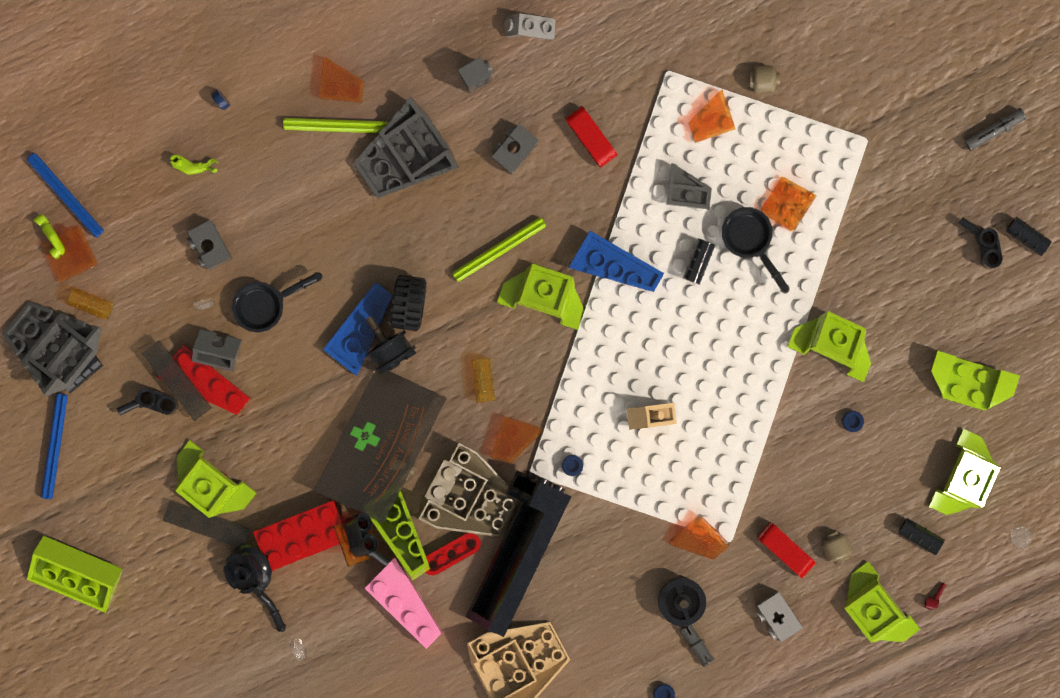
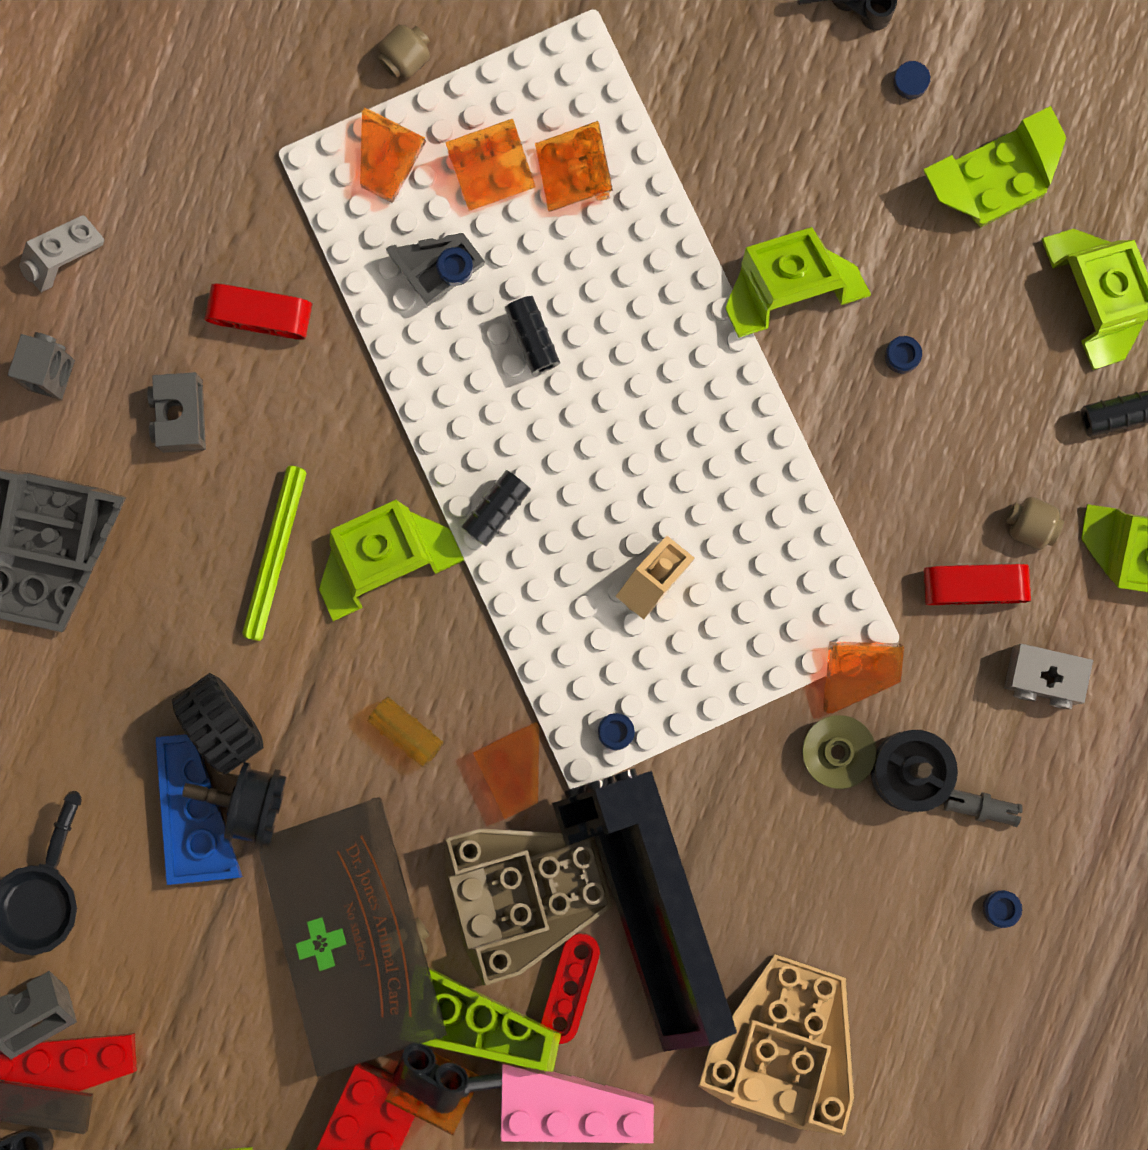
camera: 40 degrees left, 5 degrees down
(611, 262) = (425, 437): blue wing -> none
(612, 322) = (496, 508): none -> black axle
(663, 574) = (857, 746): none -> olive dish
(693, 200) = (454, 266): none -> dark blue tile
(748, 235) = (561, 246): black piece -> none
(752, 168) = (490, 164): none -> clear orange hinge
(975, 304) = (911, 80): none -> dark blue tile

